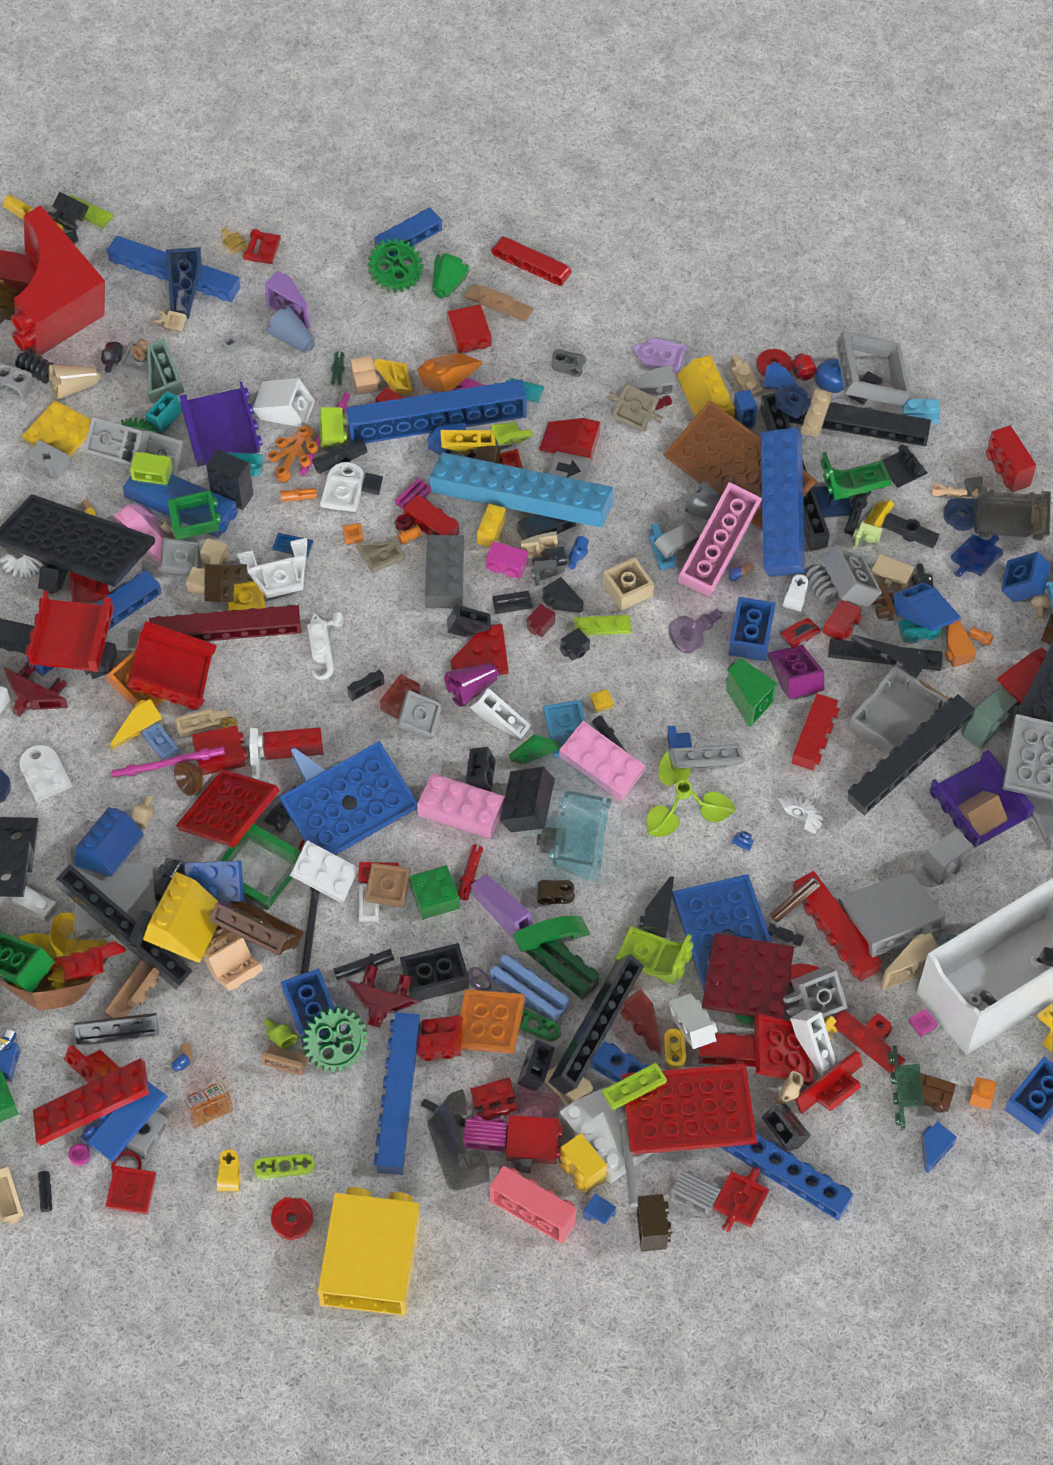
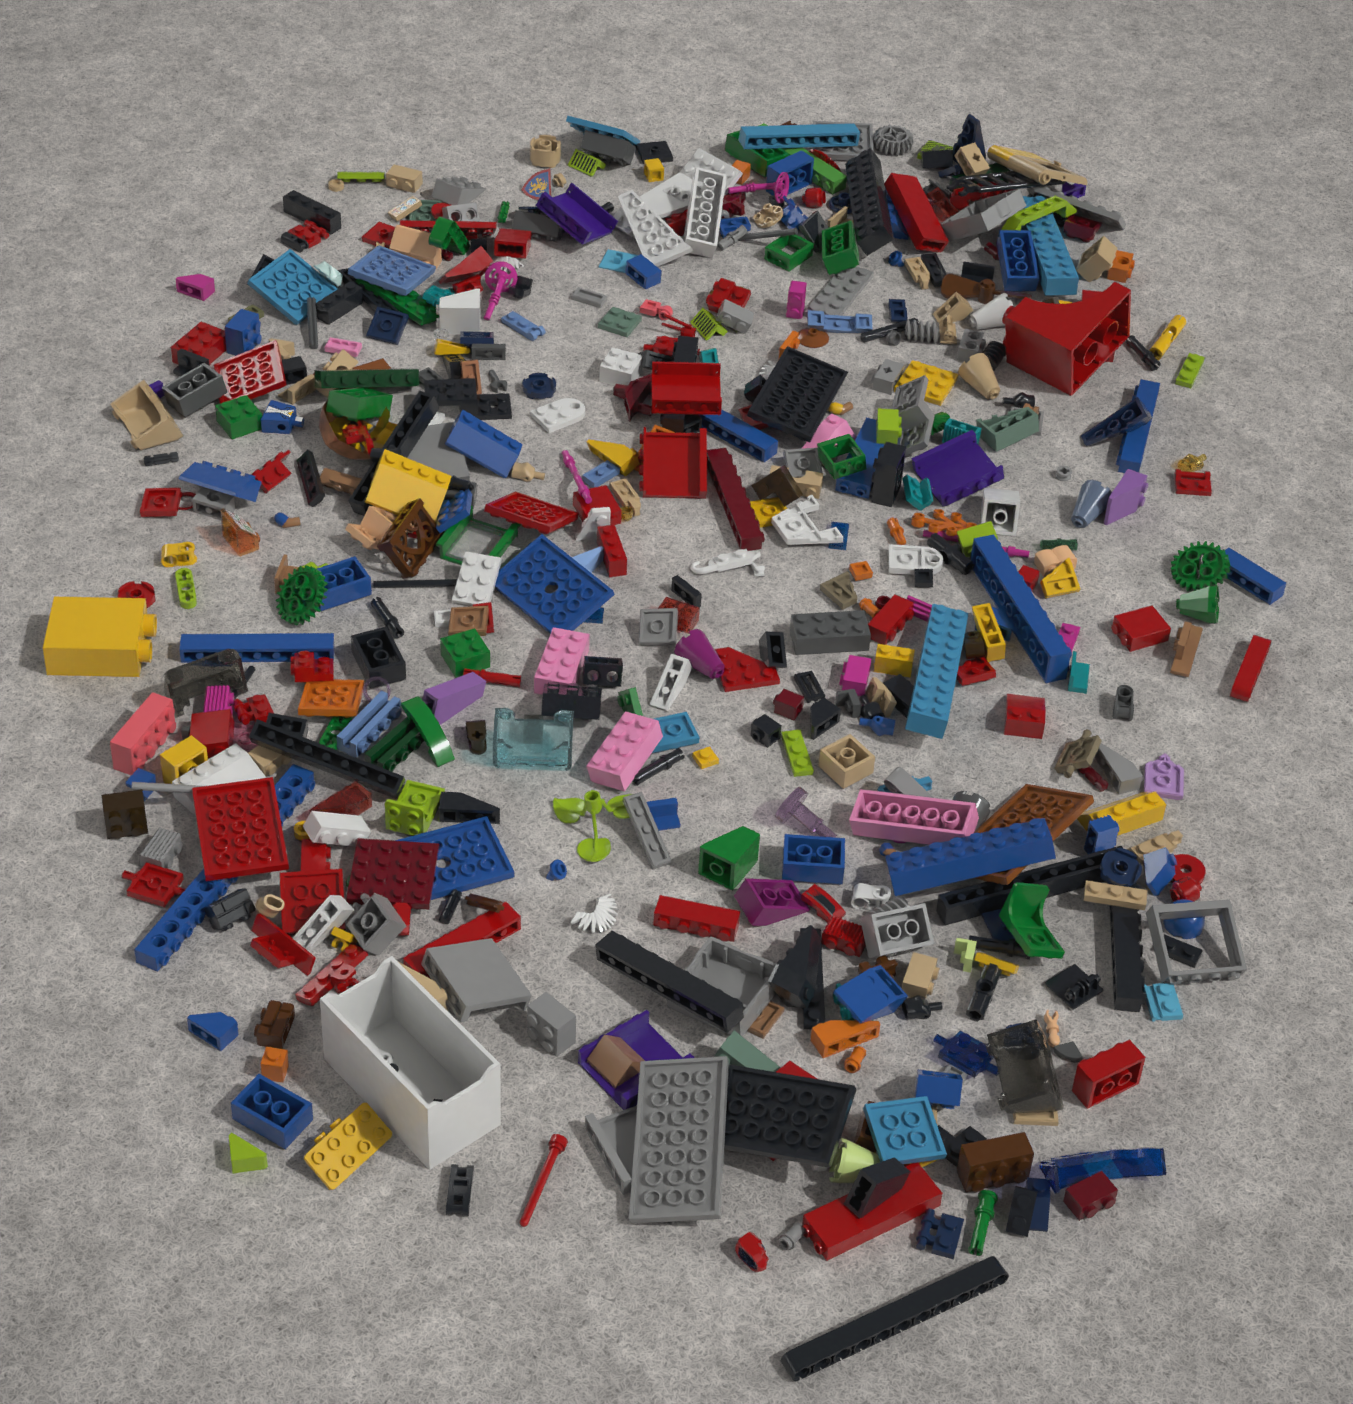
camera: 80 degrees right, 15 degrees down
(71, 207) = (1181, 357): black plate -> none
(90, 1101) = (232, 459): red plate -> none
(172, 321) = (1076, 434): tan plate -> none
(188, 778) = (563, 491): reddish brown piece -> none
(381, 1001) = (352, 622): dark red connector -> none
(447, 371) = (1077, 612): orange slope -> none
(510, 434) = (1010, 660): lime panel -> none
(570, 466) = (985, 716): light grey tile -> none
(634, 1086) = (255, 780): lime plate -> none
(907, 1086) = (274, 993): clear green bracket -> none

